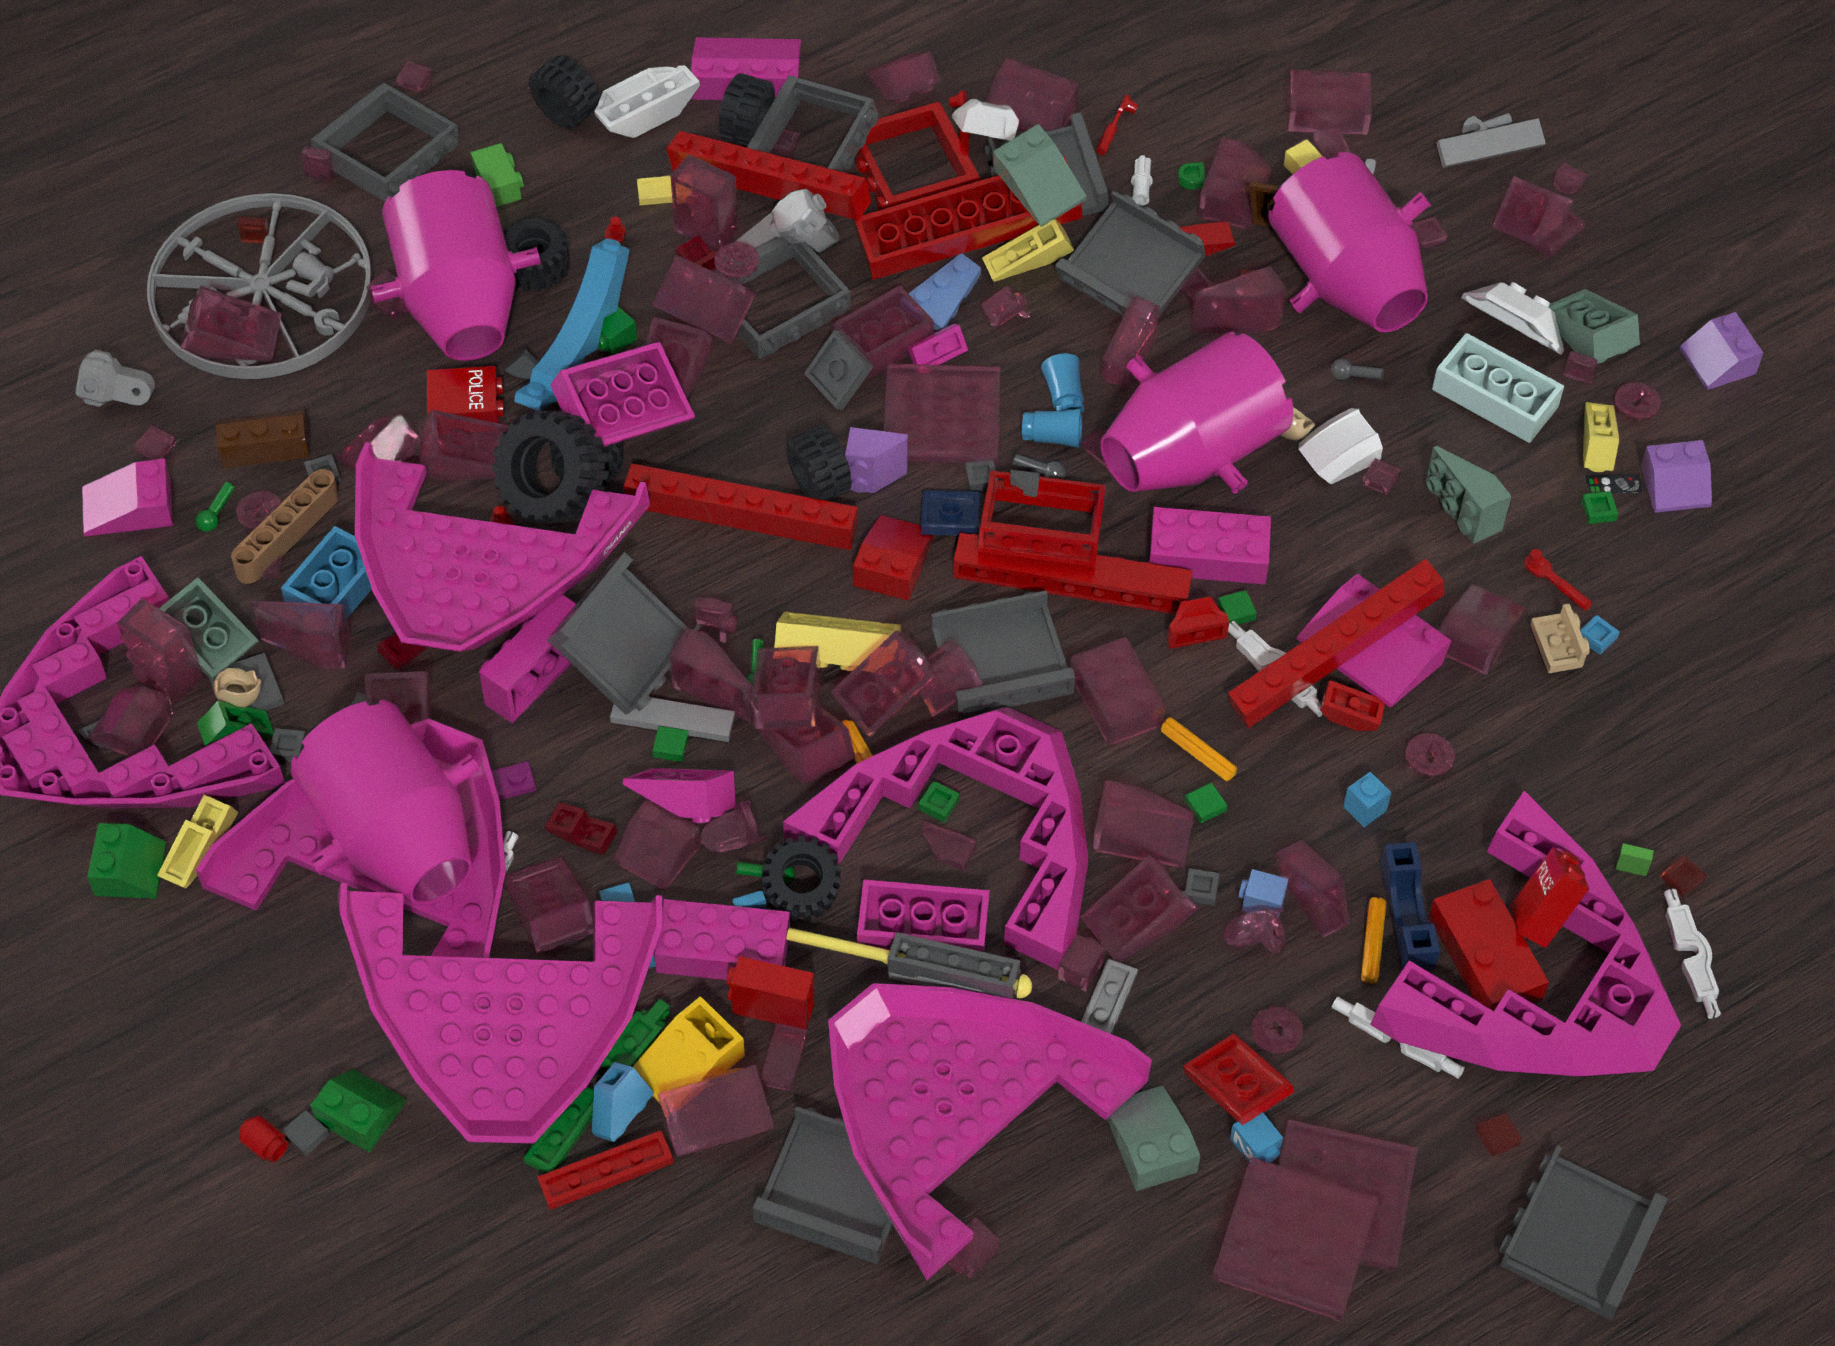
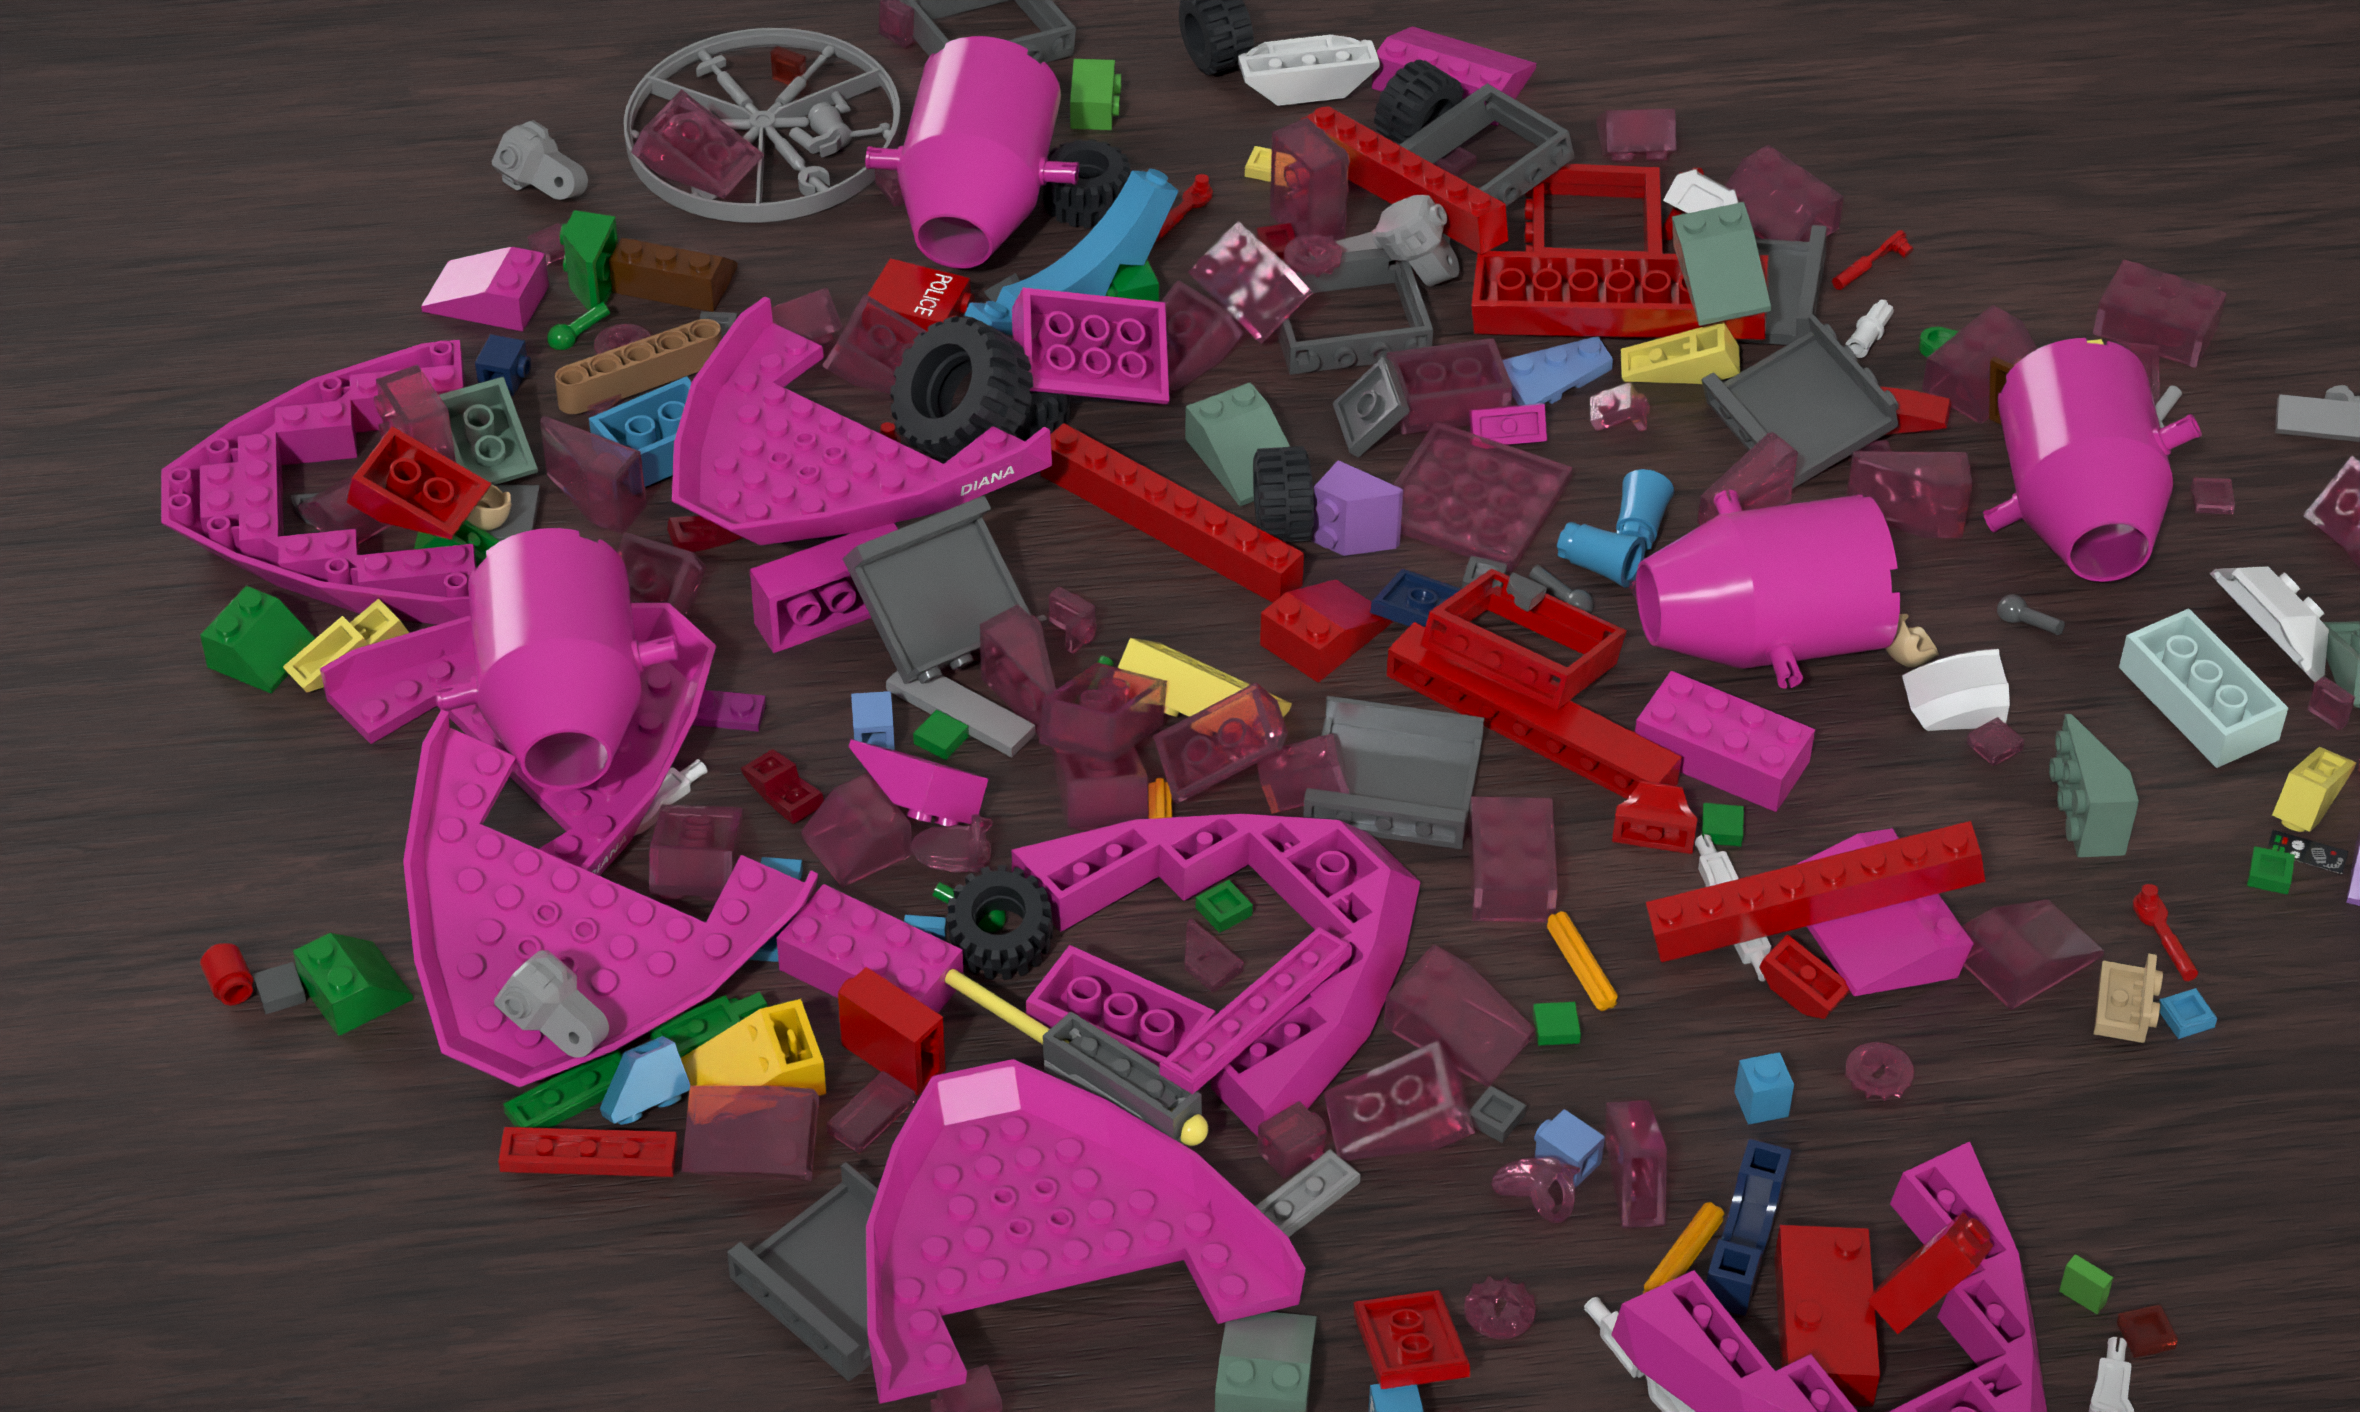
camera: 25 degrees right, 10 degrees down
(179, 561) = (505, 359): none -> dark blue brick
(191, 697) = (415, 487): none -> red slope
(198, 449) = (588, 247): none -> green slope
(523, 1071) = (546, 999): none -> light grey piece
(620, 754) = (873, 718): none -> medium blue brick
(756, 429) = (1227, 434): none -> sand green slope
(1021, 881) = (1255, 1010): none -> dark pink tile

